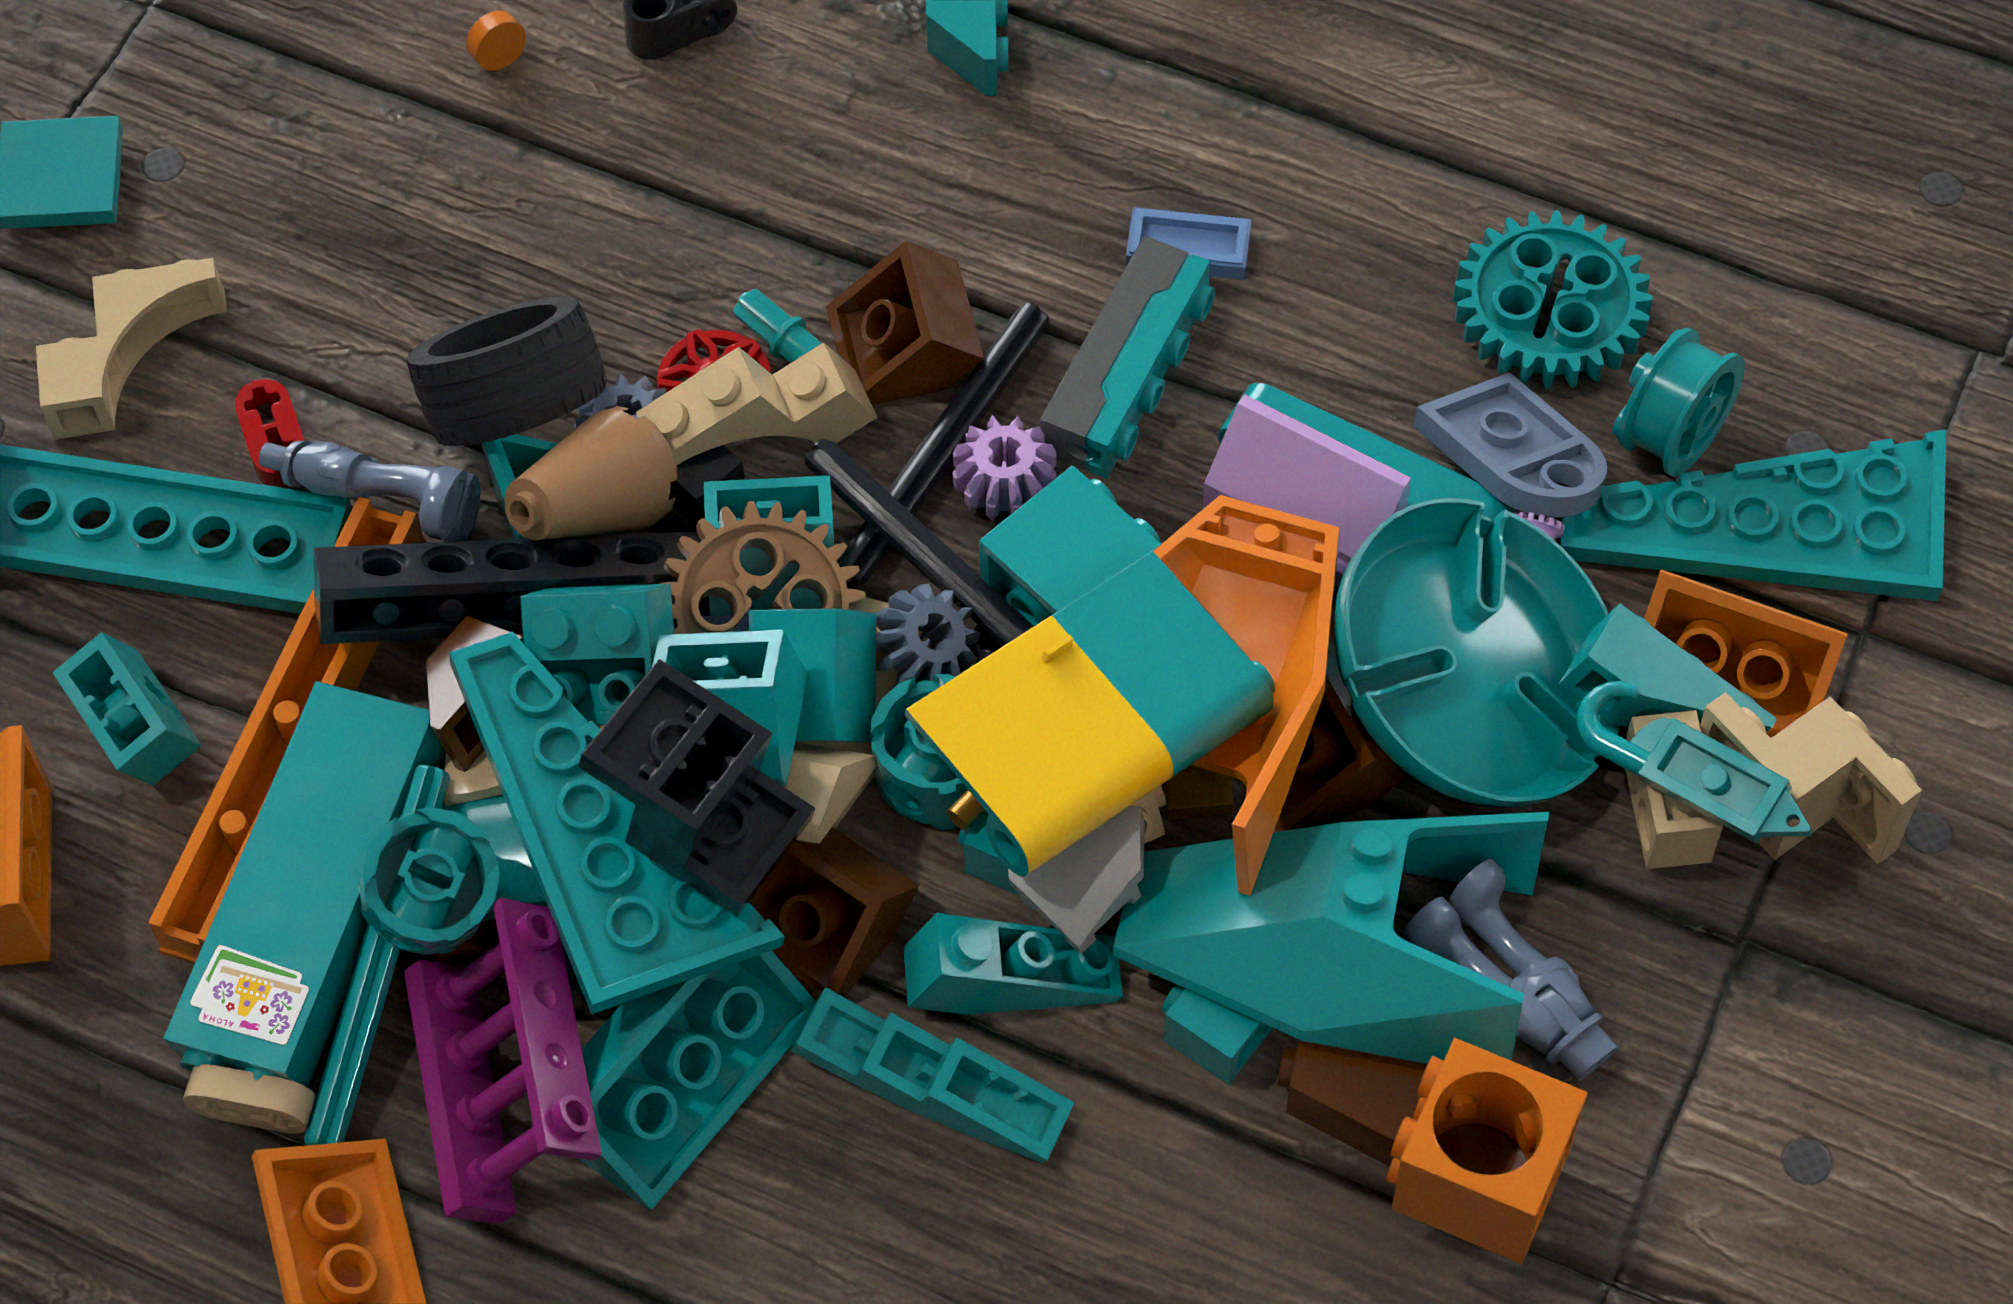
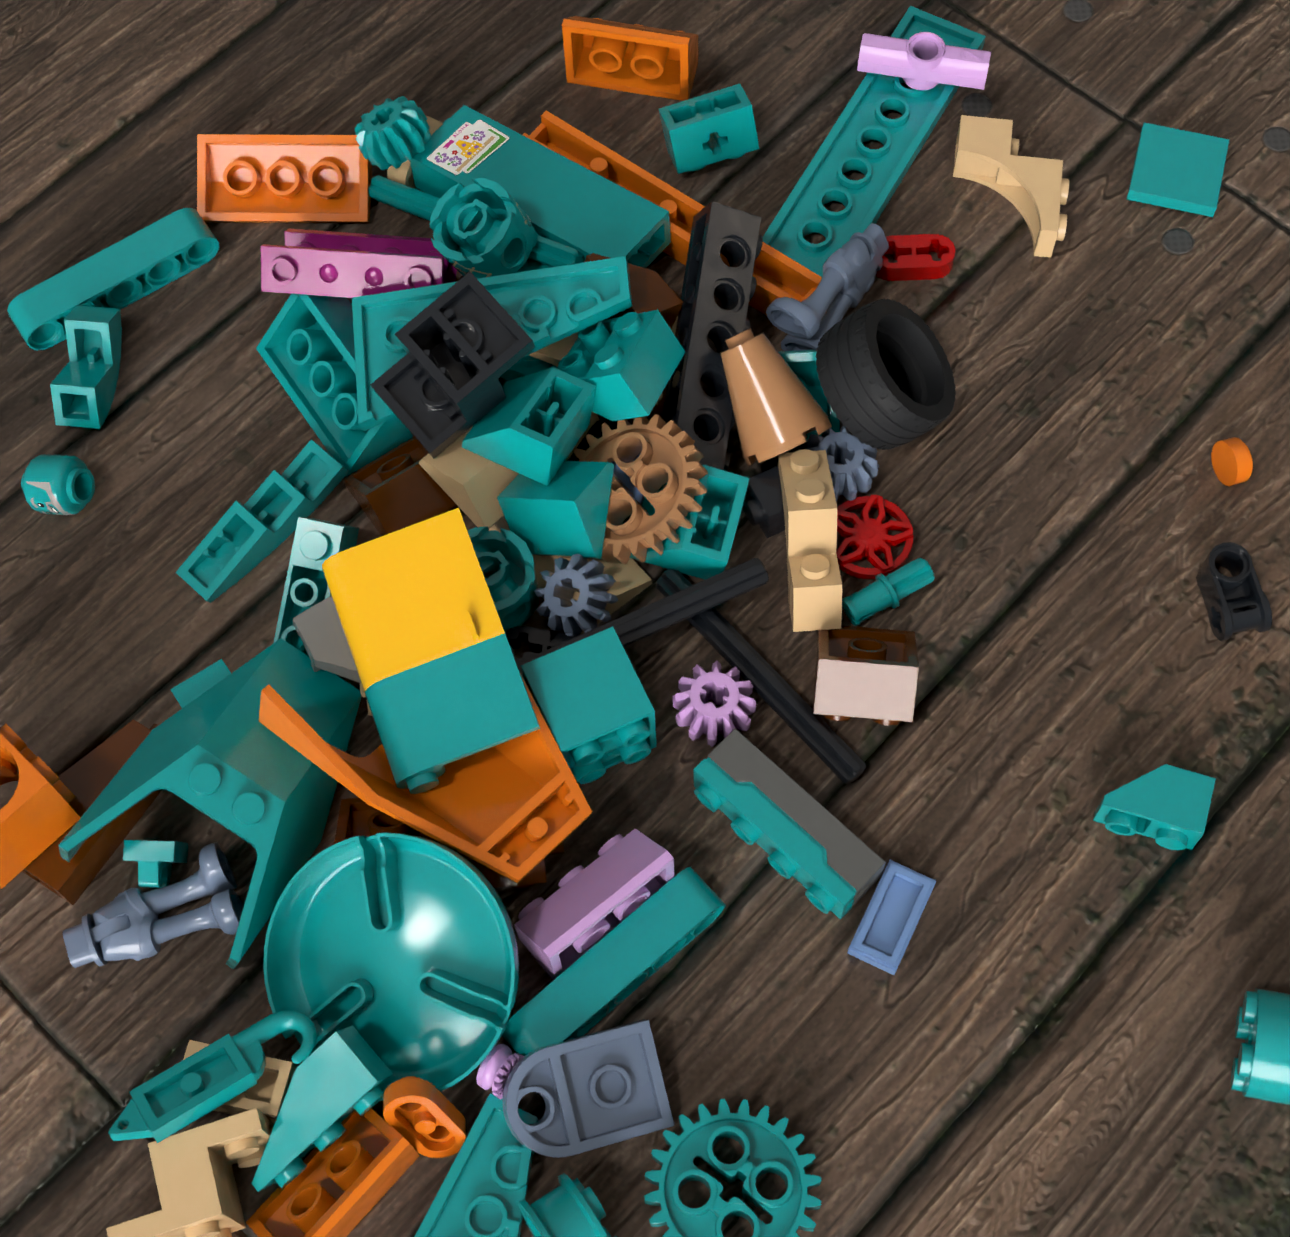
camera: 110 degrees right, 5 degrees up
(233, 1094) = (392, 133): none -> teal gear
(1617, 584) = (424, 1117): none -> orange plate

